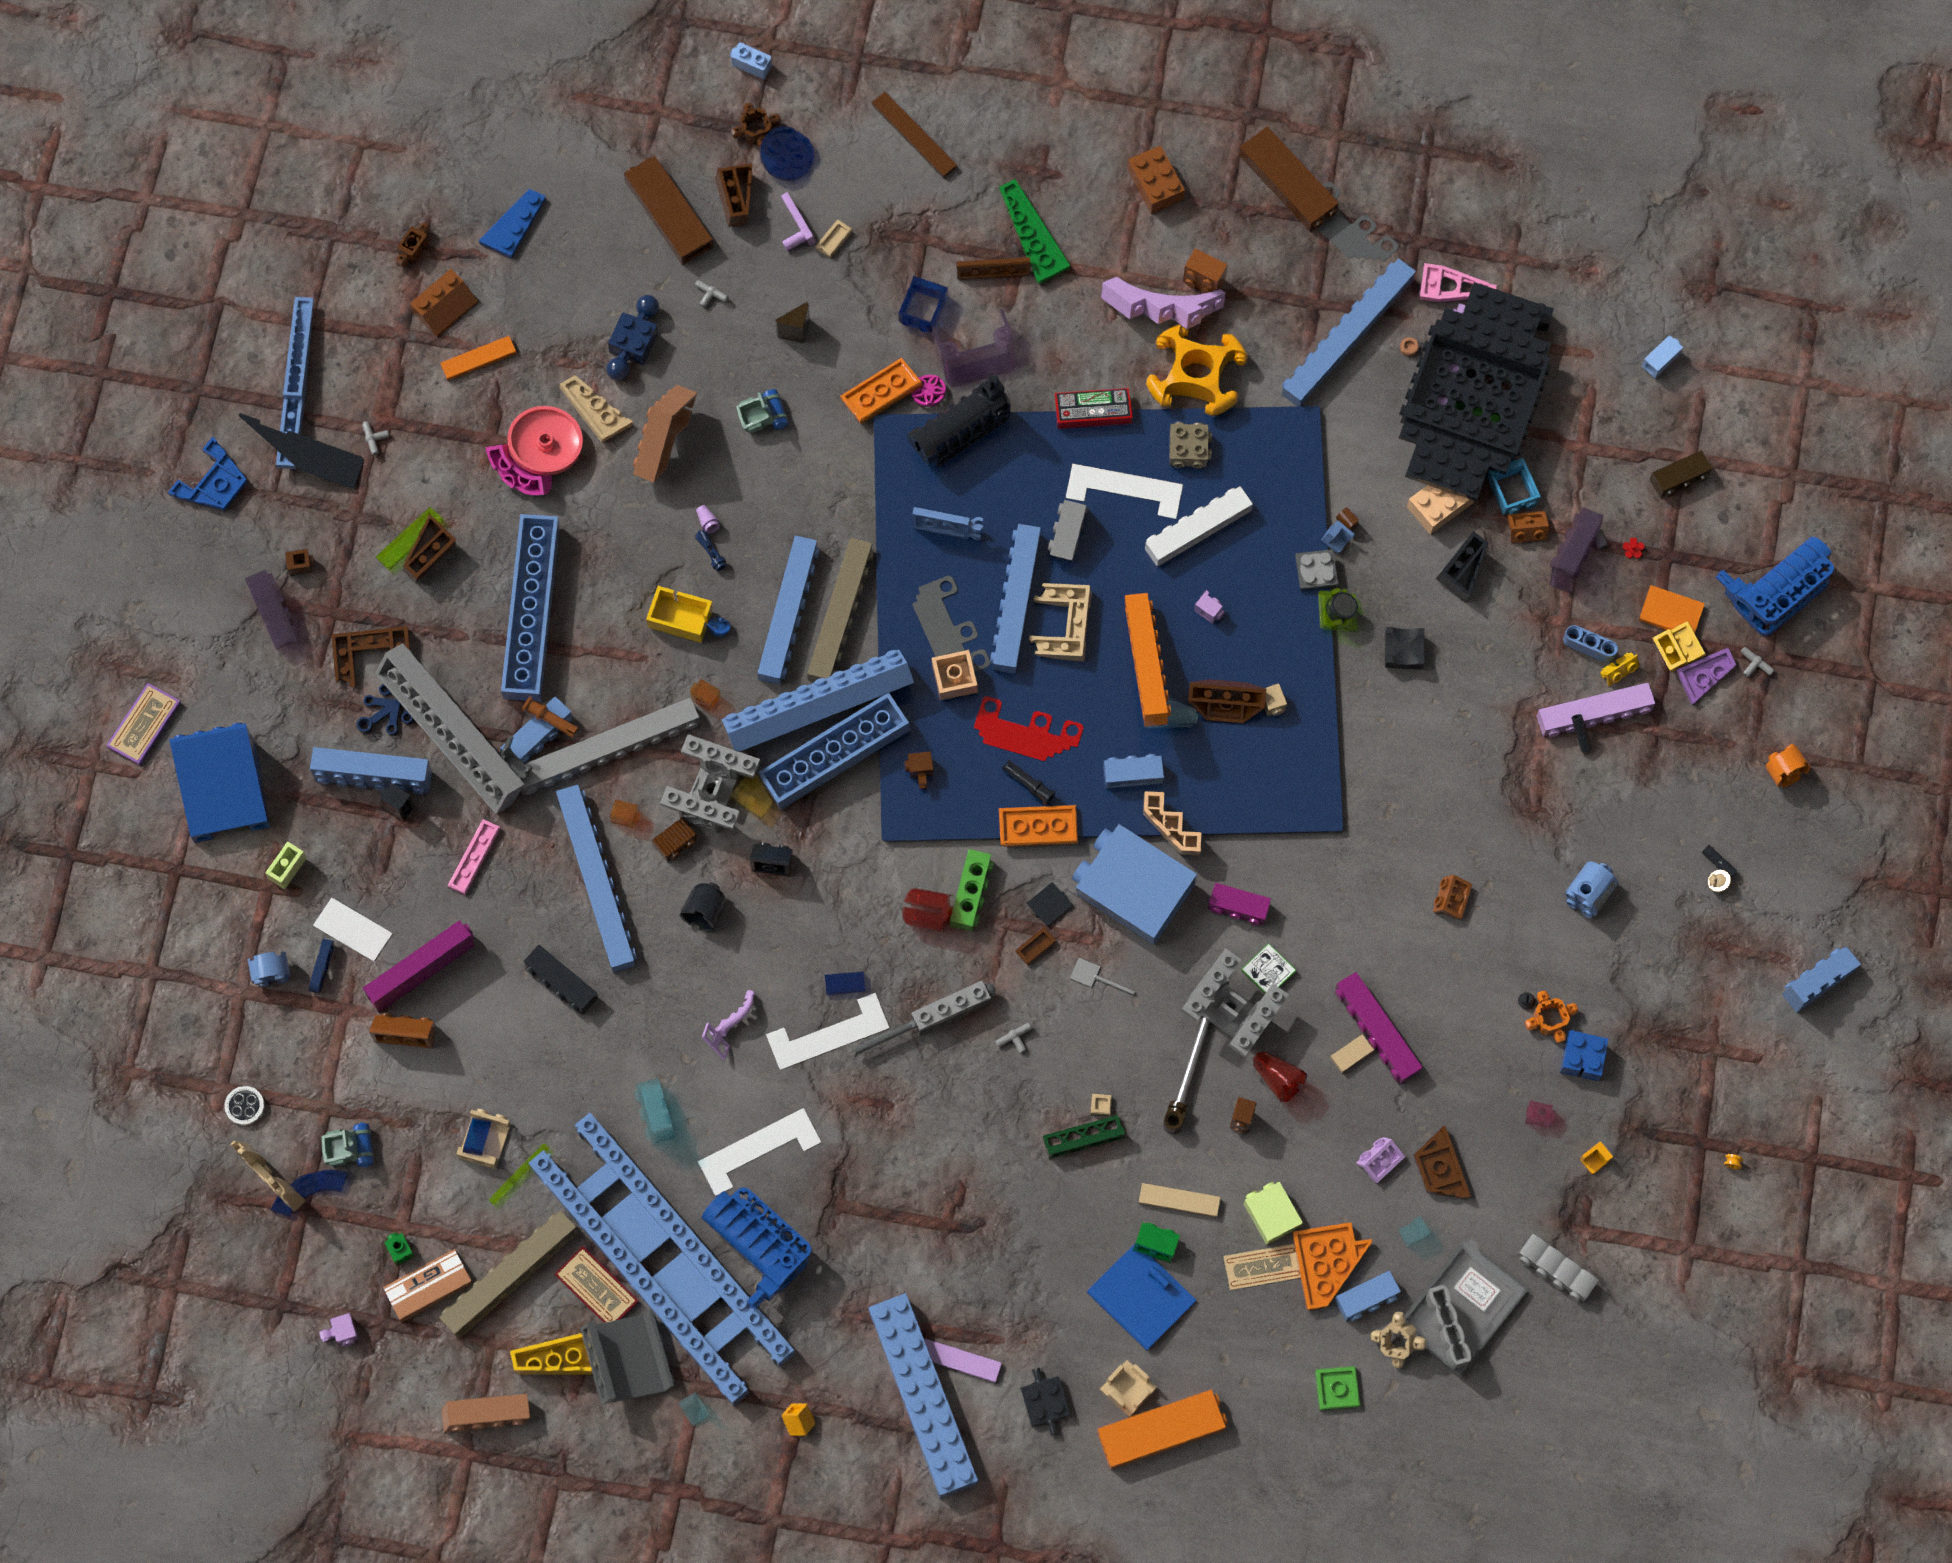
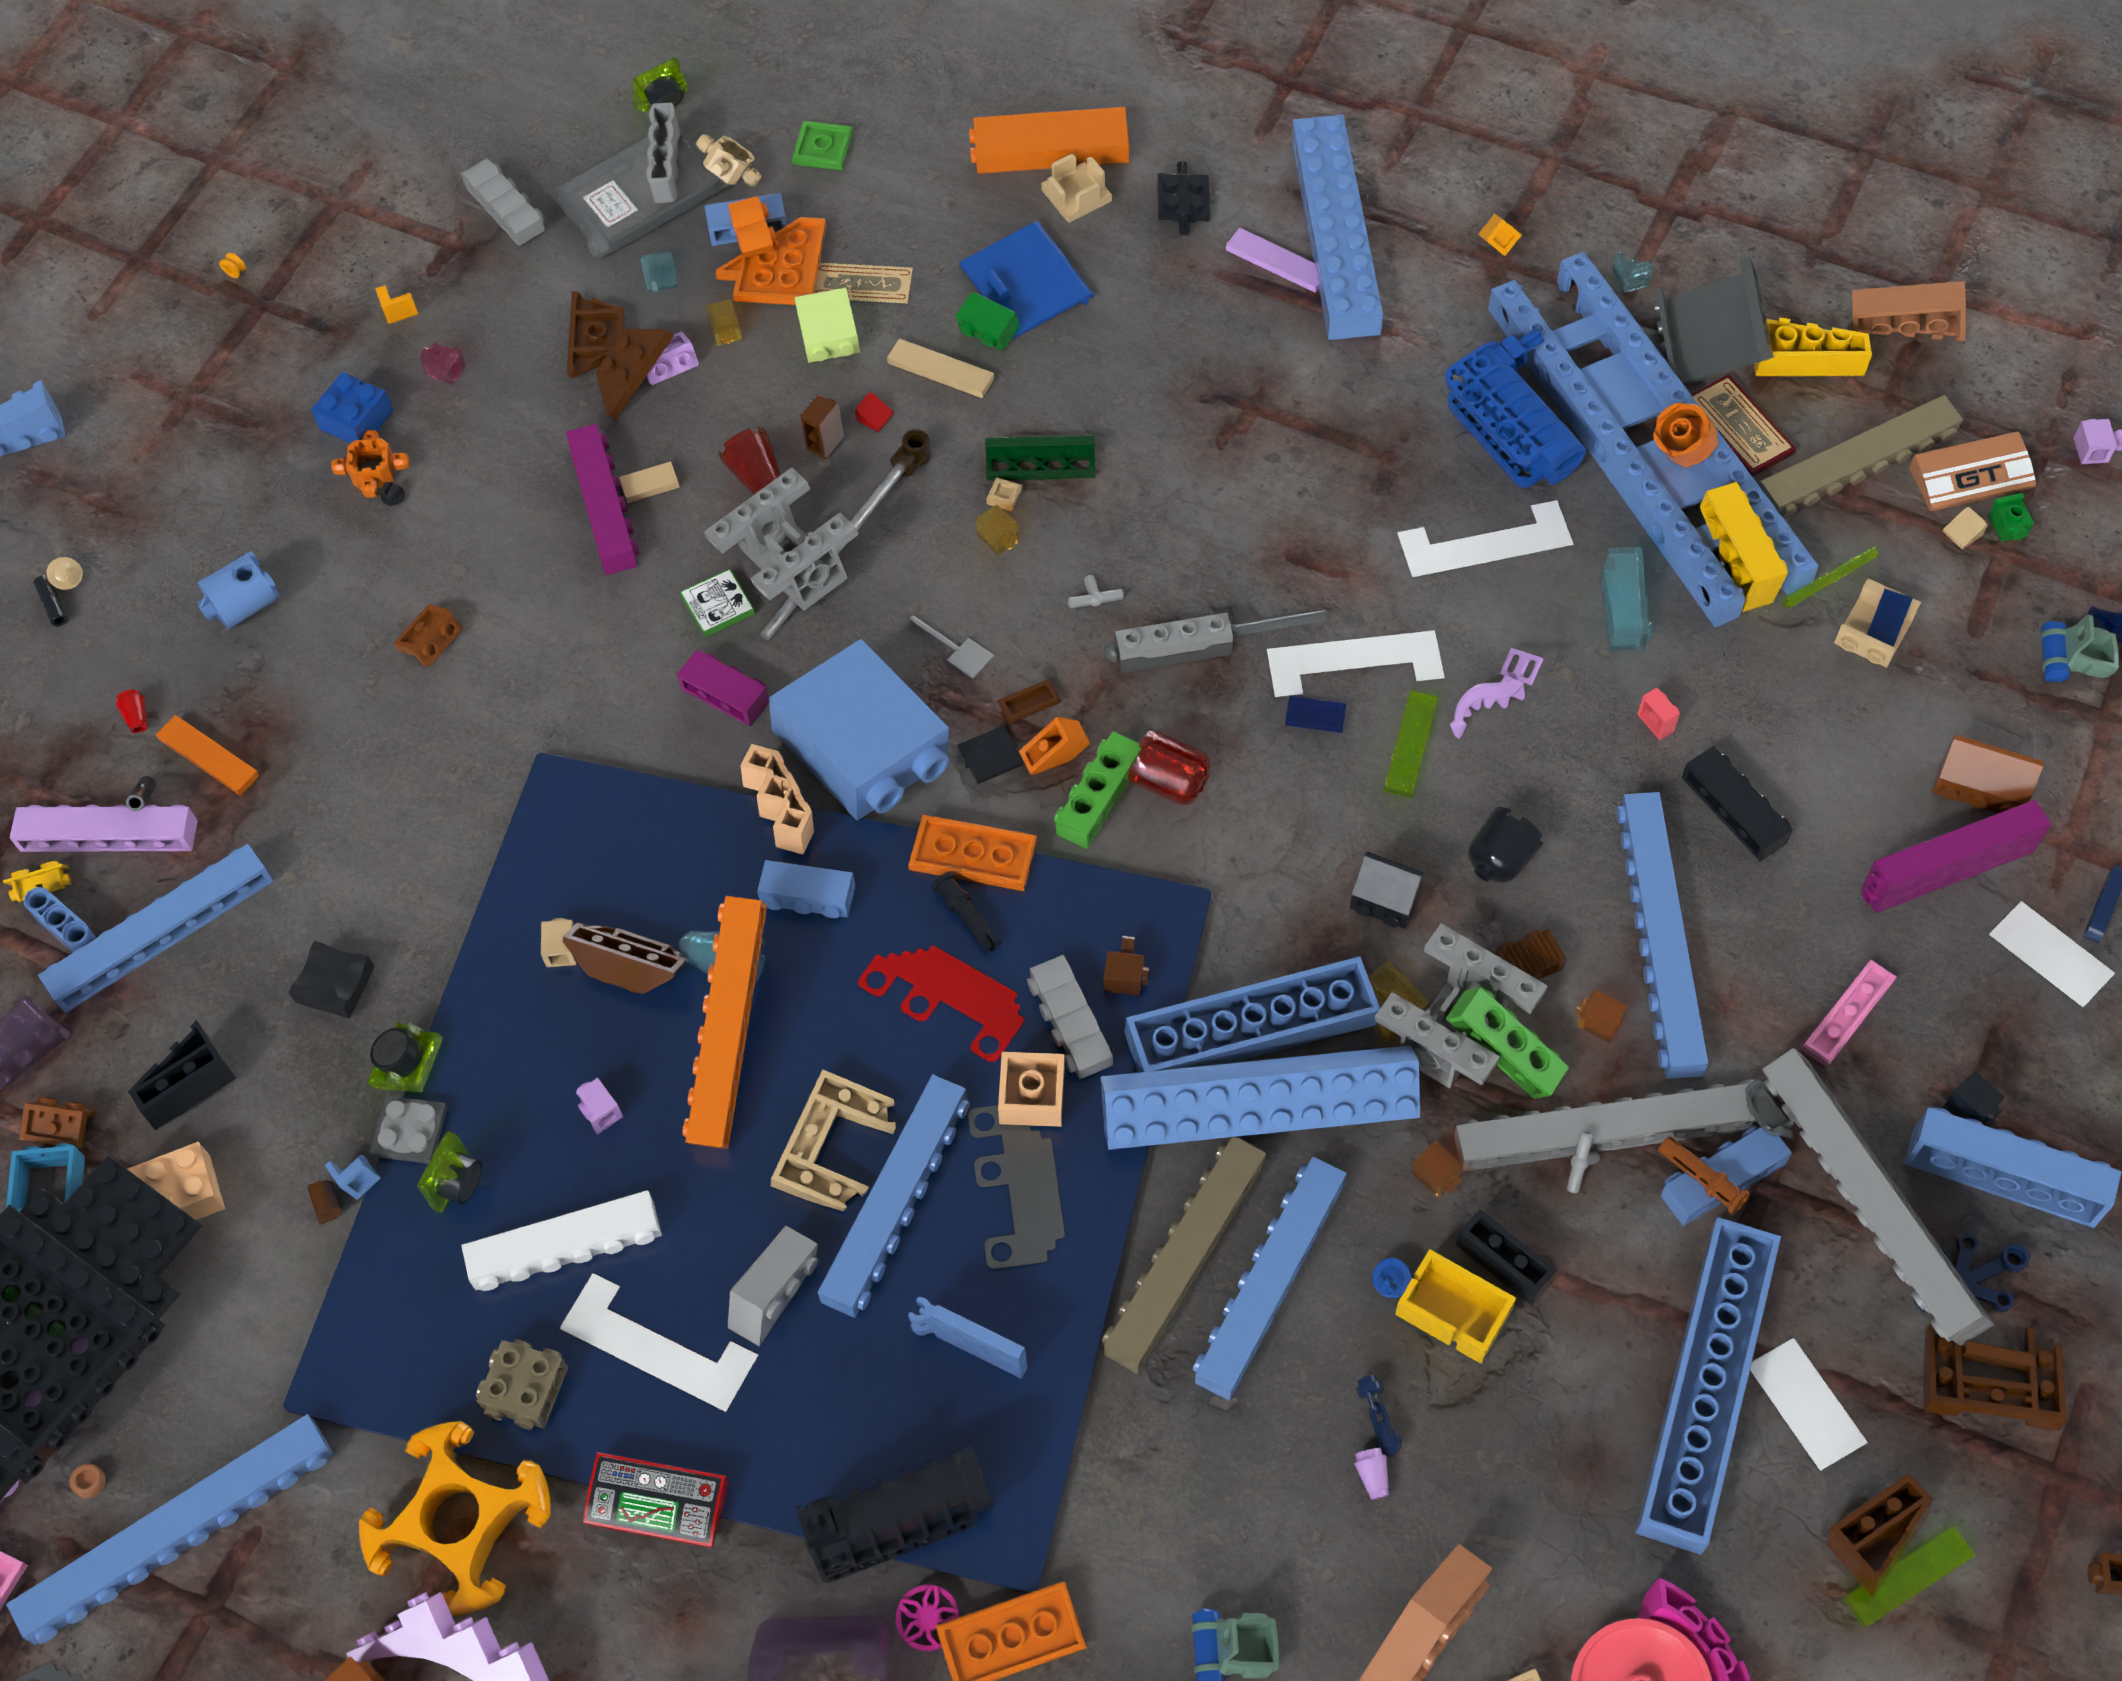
camera: 160 degrees left, 10 degrees down
(366, 664) = (1997, 1356): none -> reddish brown tile
(430, 1234) = (1965, 528): none -> tan slope
(474, 618) = (1807, 1404): none -> white sticker
(582, 1164) = (1744, 545): none -> yellow wedge
(620, 1031) = (1658, 713): none -> coral piece
(622, 717) = (1581, 1161): none -> light grey piece
(633, 1238) = (1685, 434): none -> orange brick
(656, 649) = (1506, 1257): none -> black brick
(678, 769) = (1547, 1067): none -> bright green brick
(778, 977) = (1411, 744): none -> clear neon green tile
(945, 729) = (1071, 1017): none -> light grey brick
(1008, 913) = (1054, 745): none -> orange slope
(1094, 1068) = (997, 530): none -> clear yellow brick
(1213, 1148) = (873, 412): none -> red slope
(1274, 540) = (450, 1174): none -> piece
(1348, 1196) = (723, 322): none -> clear yellow brick
(1355, 1272) = (751, 227): none -> orange brick
(1401, 1135) = (629, 365): none -> reddish brown wing
(1479, 1399) = (659, 85): none -> piece
(1528, 655) = (155, 928): none -> medium blue brick
(1557, 778) = (207, 755): none -> orange tile
(1621, 795) = (132, 708): none -> red cone

